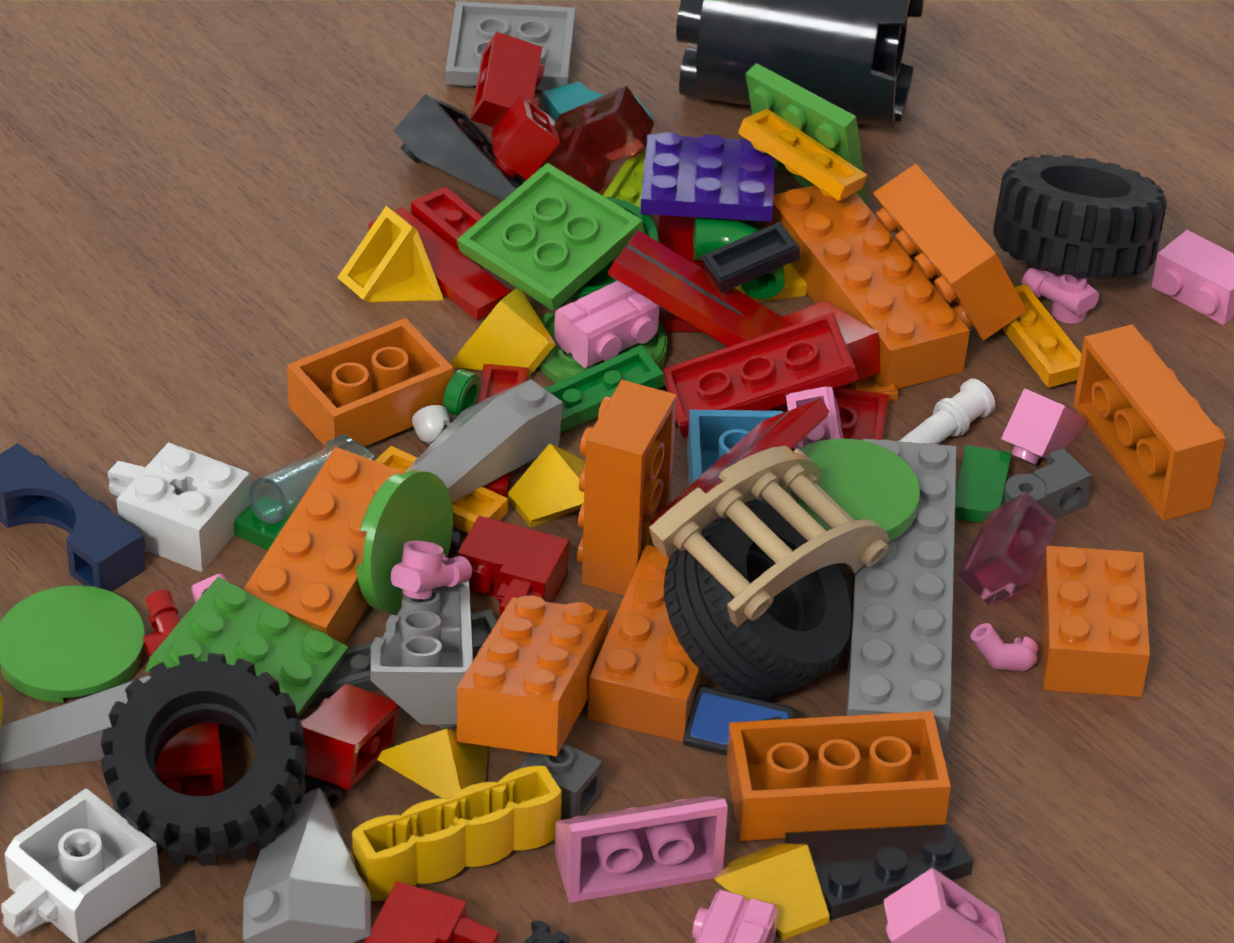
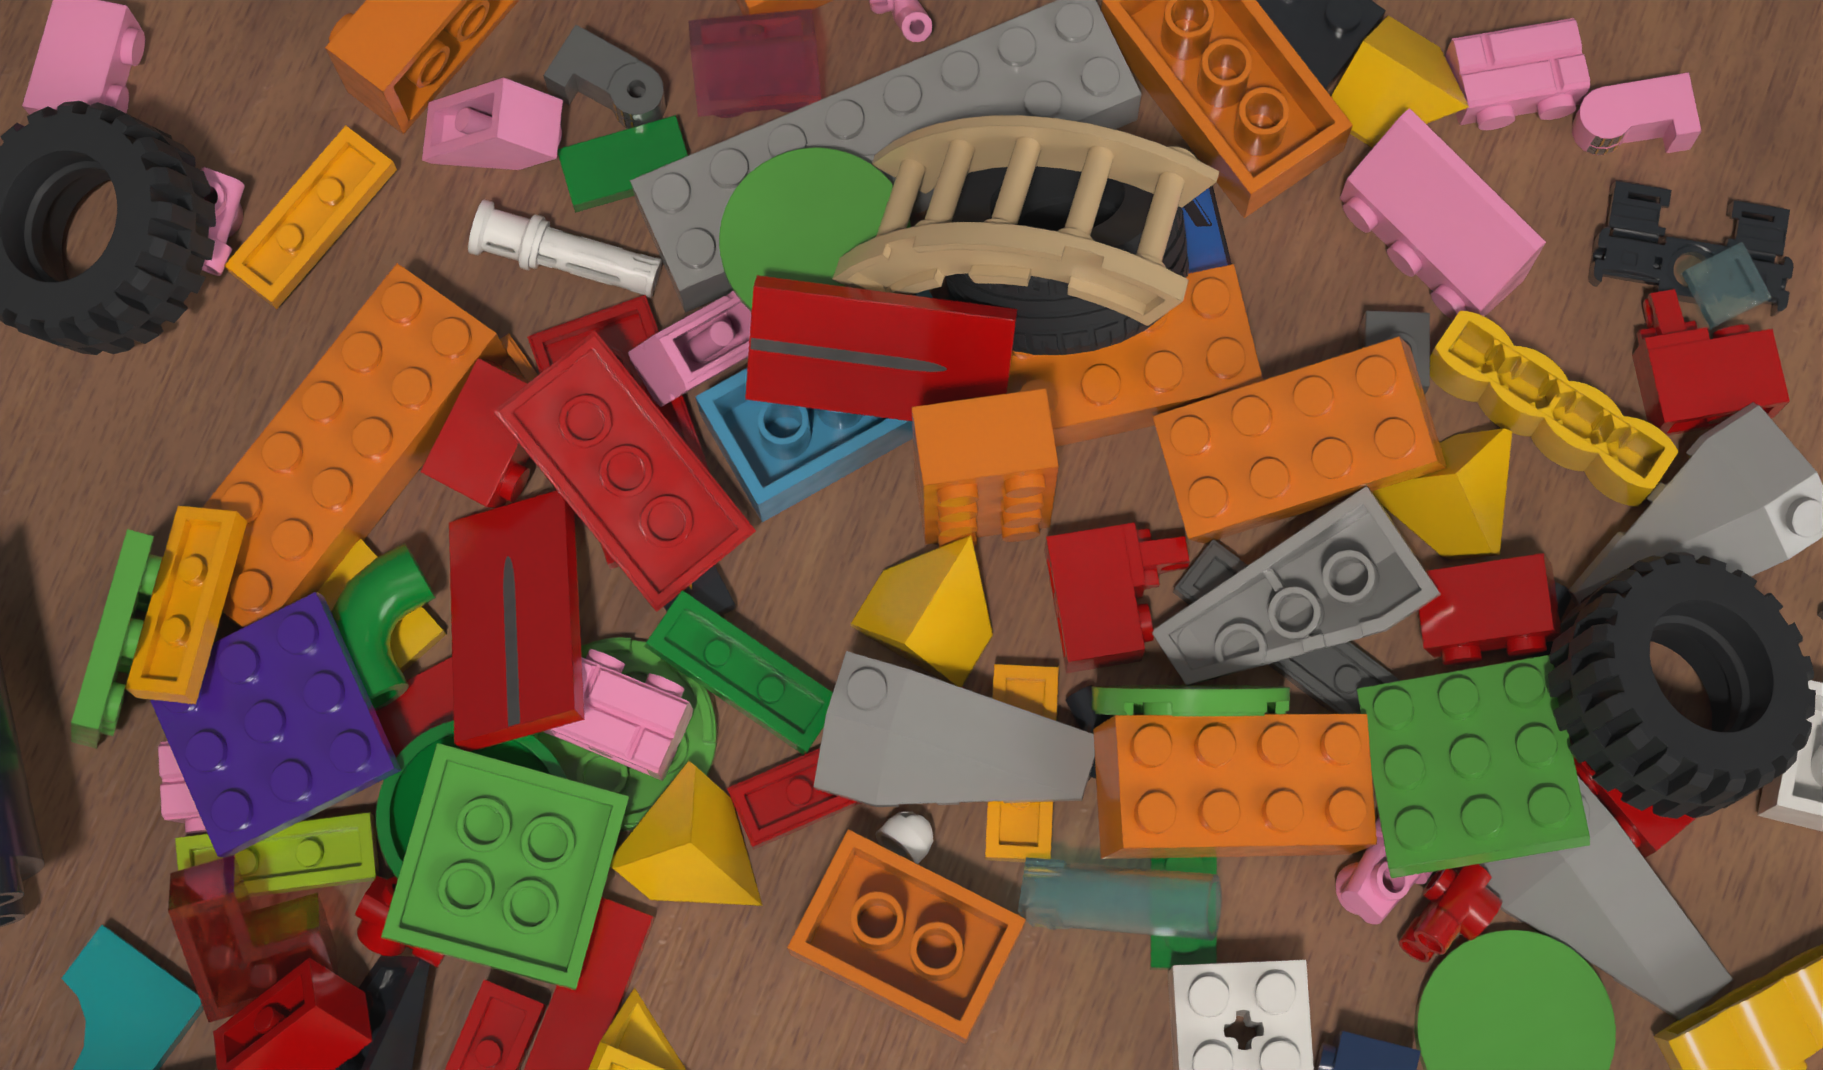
camera: 115 degrees left, 35 degrees up
(428, 568) = (1205, 647): bright pink plate -> none
(461, 391) = (835, 820): green tile -> none
(751, 257) = (417, 581): black tile -> none
(949, 252) = (256, 356): orange brick -> none

